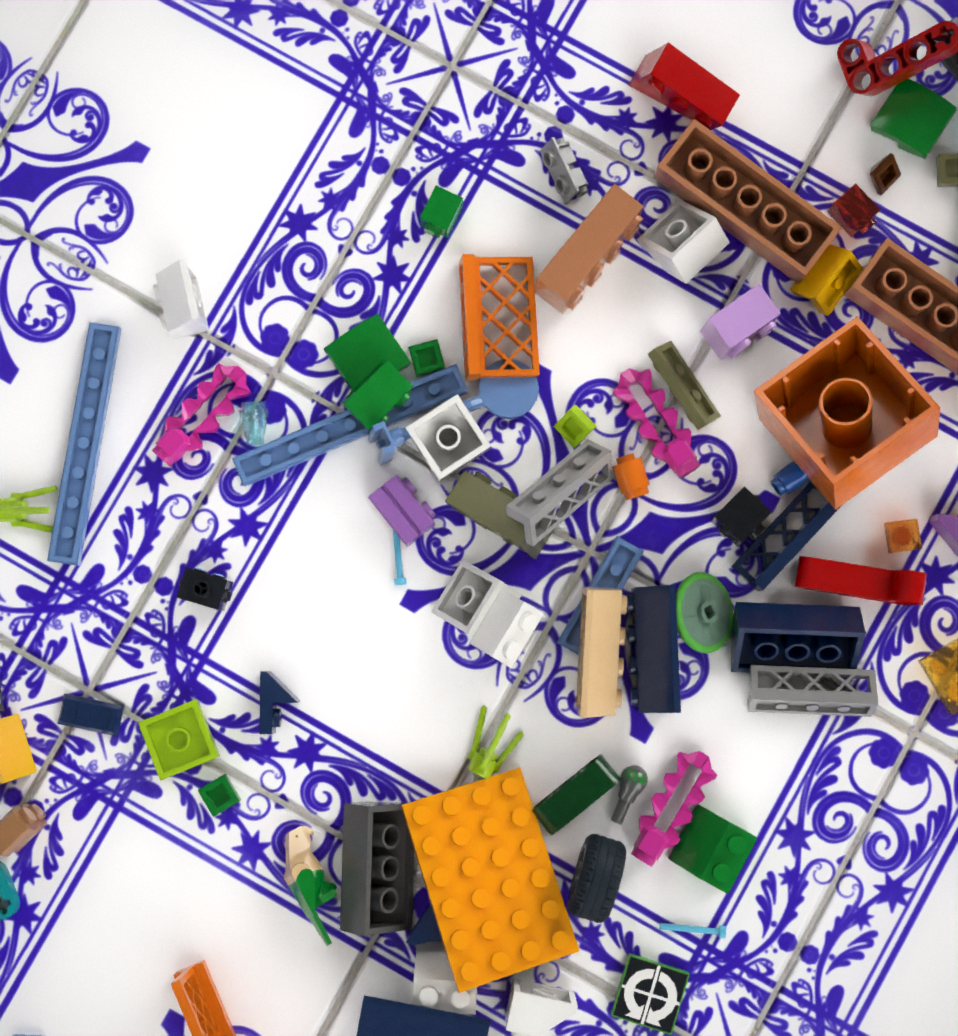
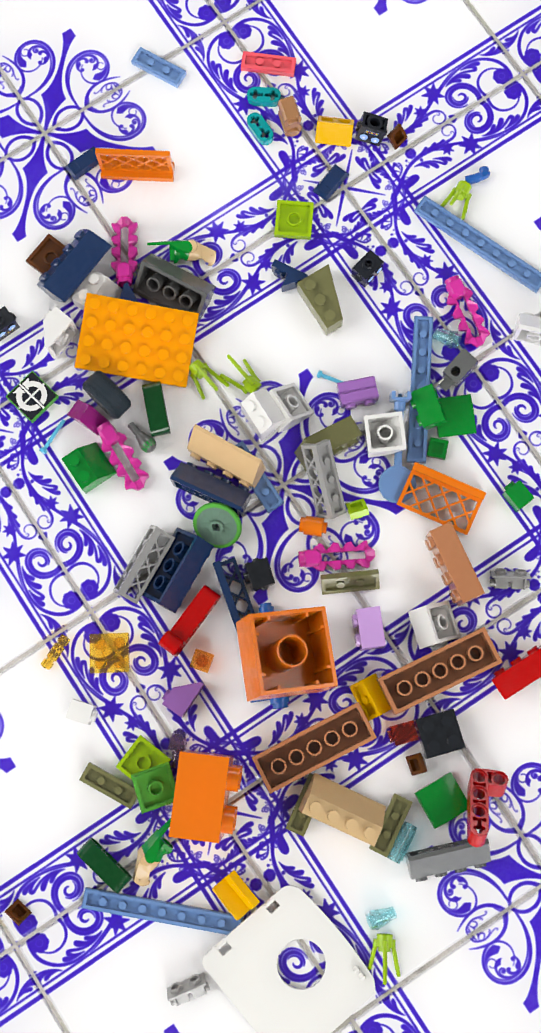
camera: 120 degrees right, 5 degrees down
(60, 872) = (263, 126): none -> teal beam
(219, 795) = (254, 227): green tile -> none
(285, 633) = (321, 299): none -> olive wedge
(286, 375) = (464, 364): none -> dark grey torso
(387, 958) = (123, 270): none -> dark pink sword
(466, 674) = (251, 382): none -> lime plant
(638, 893) = (87, 416): none -> magenta slope
(829, 162) = (439, 733): none -> black brick

